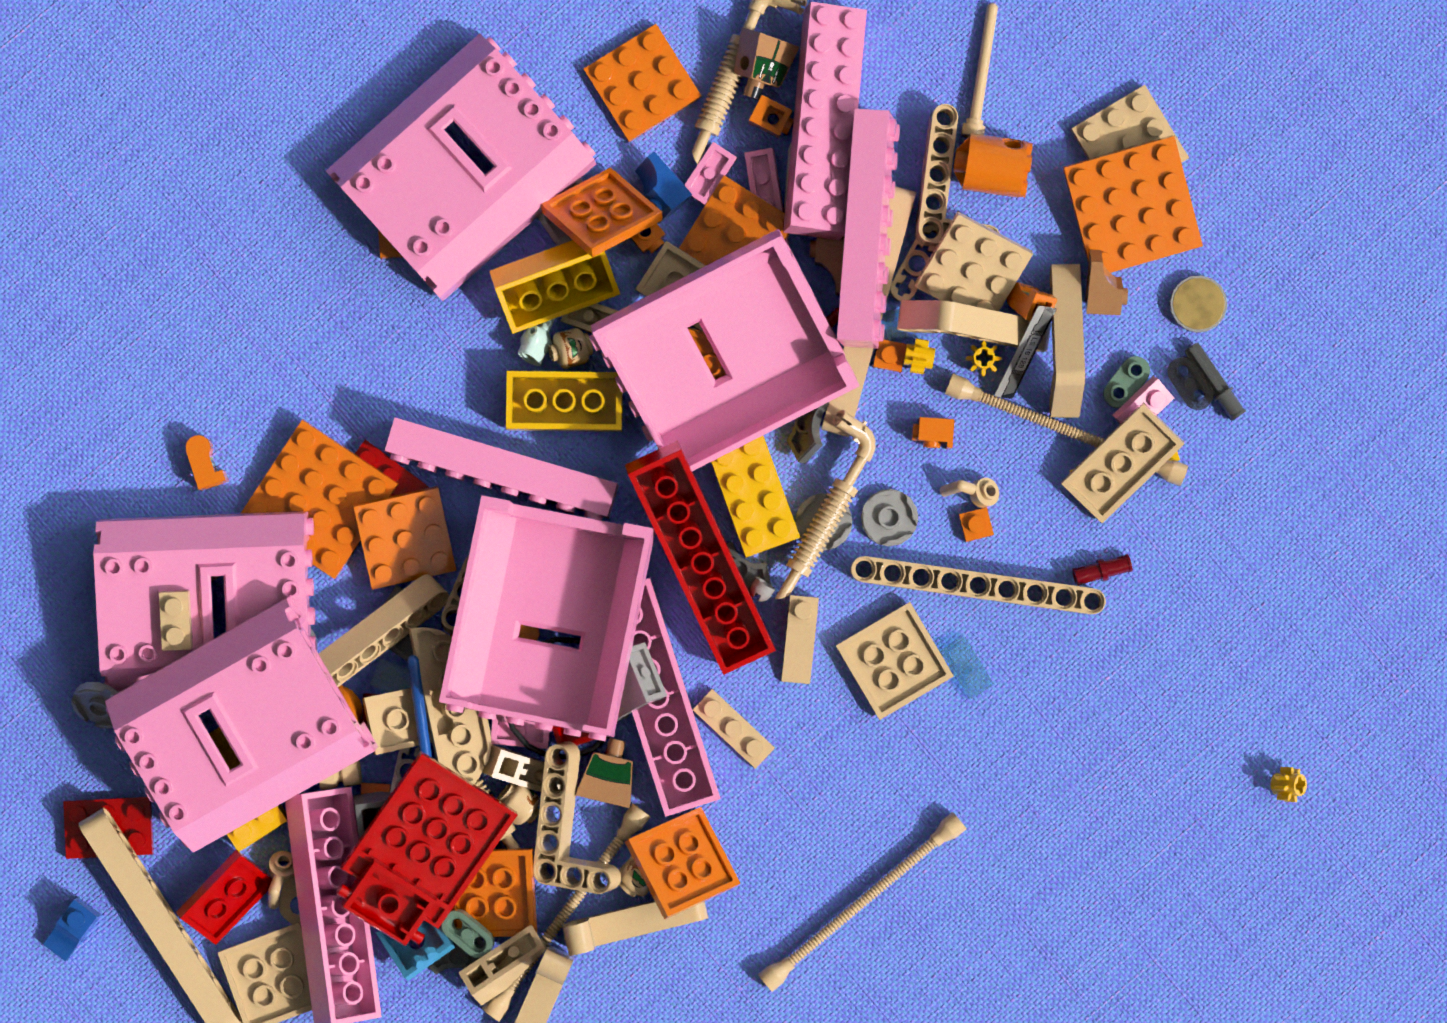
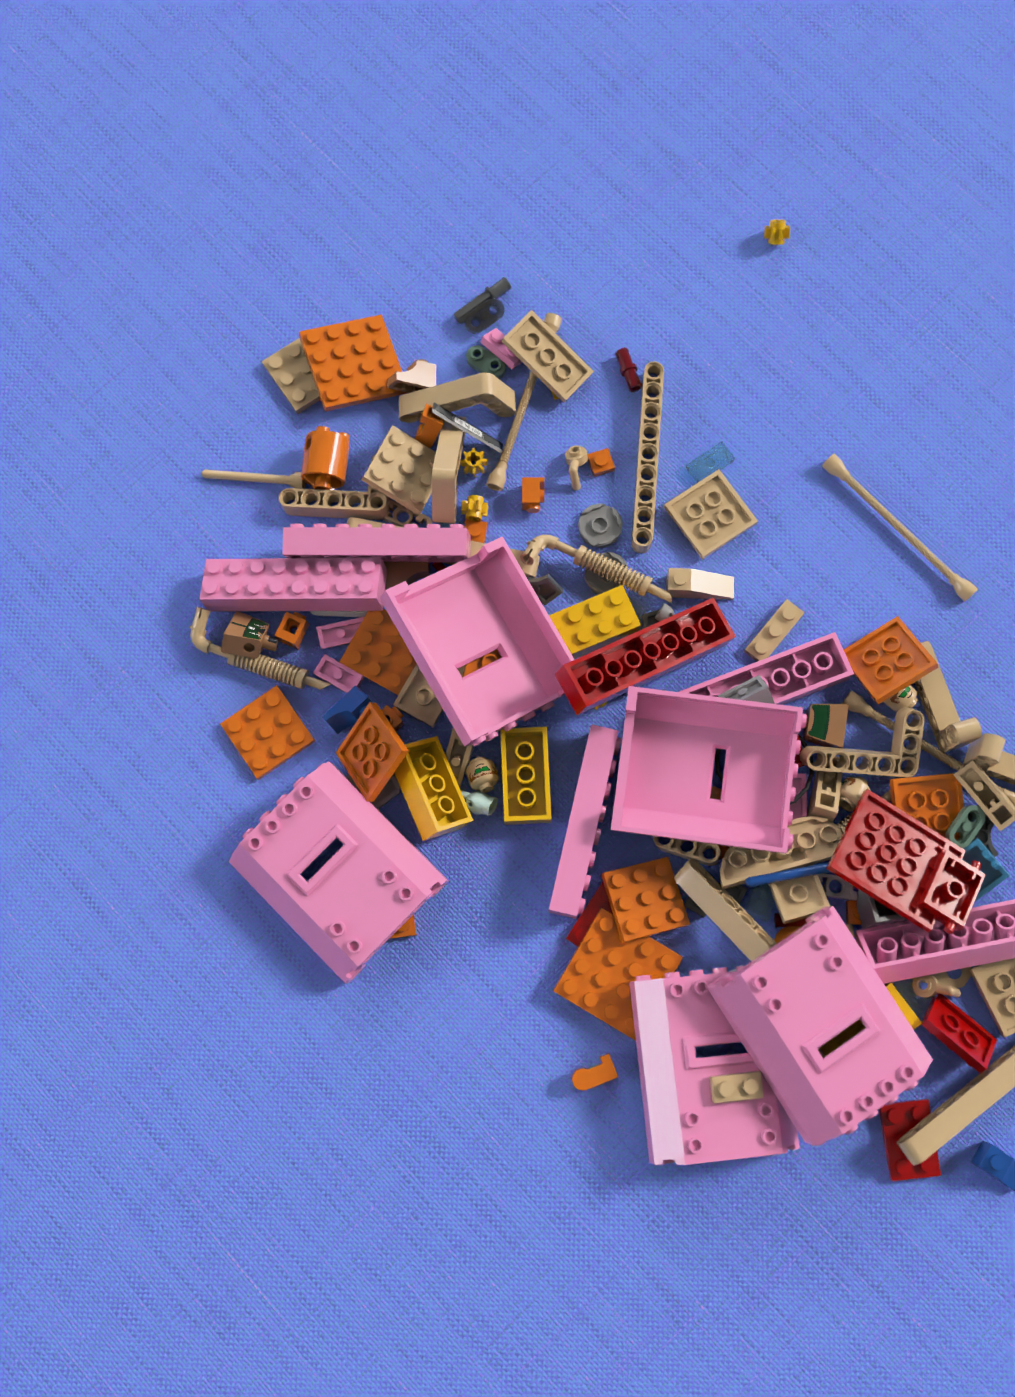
camera: 85 degrees left, 10 degrees down
(90, 703) = (807, 1158): light grey tile -> none
(1198, 304) = (425, 316): pearl gold tile -> none

